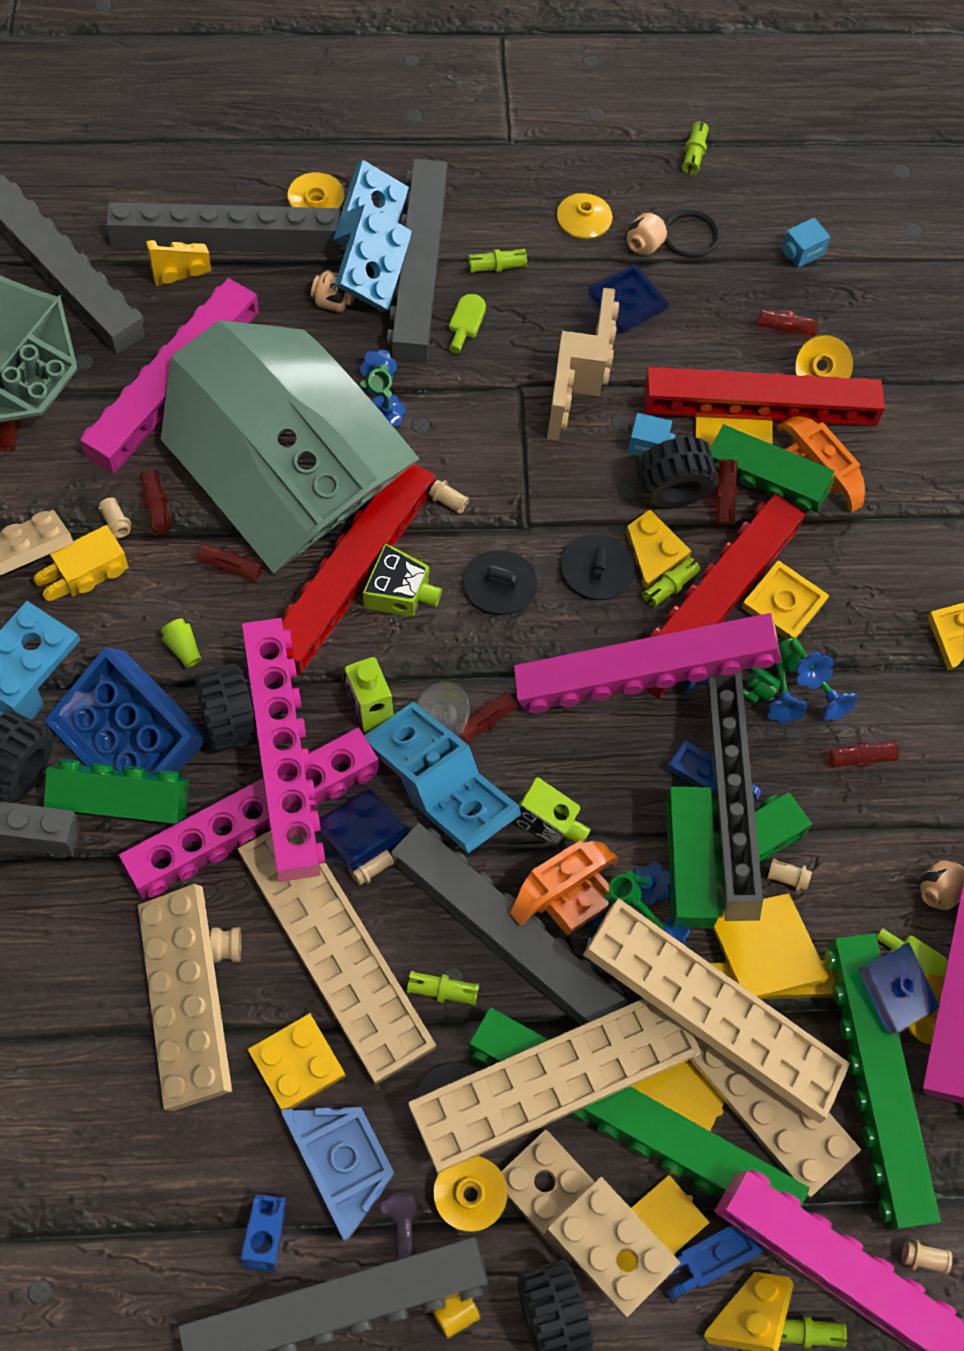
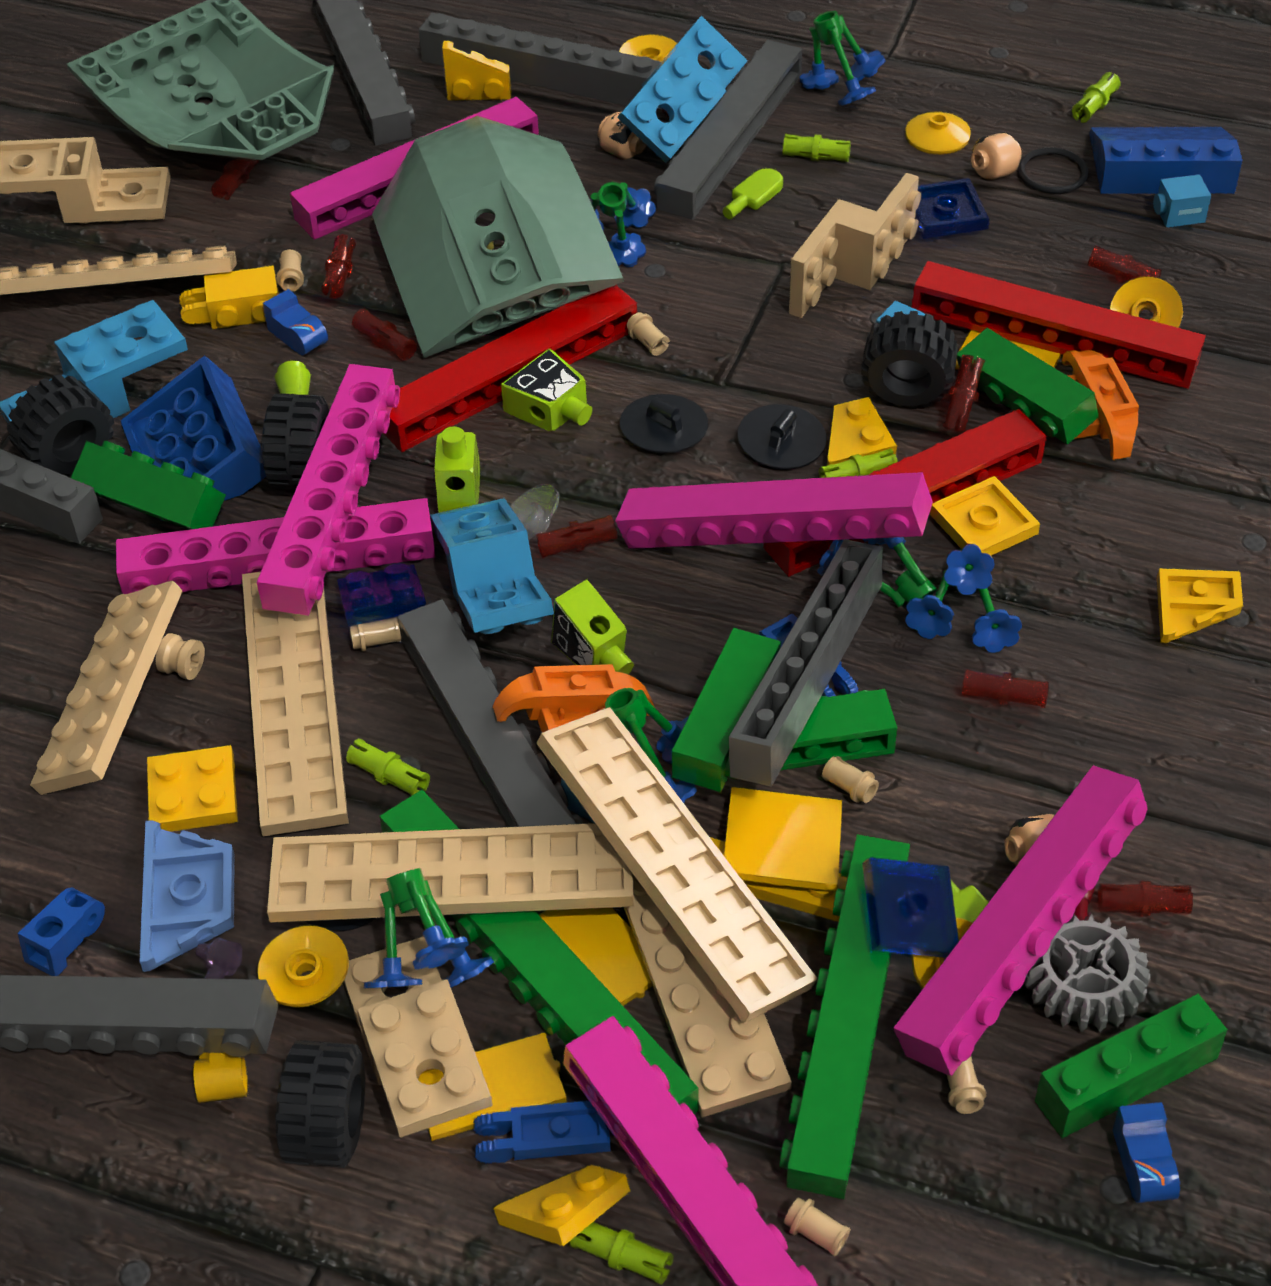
camera: 30 degrees right, 15 degrees down
(149, 576) = (294, 323): none -> blue leg
(498, 162) = (829, 29): none -> plant
(594, 1151) = (413, 893): none -> plant
(772, 198) = (1139, 157): none -> blue slope

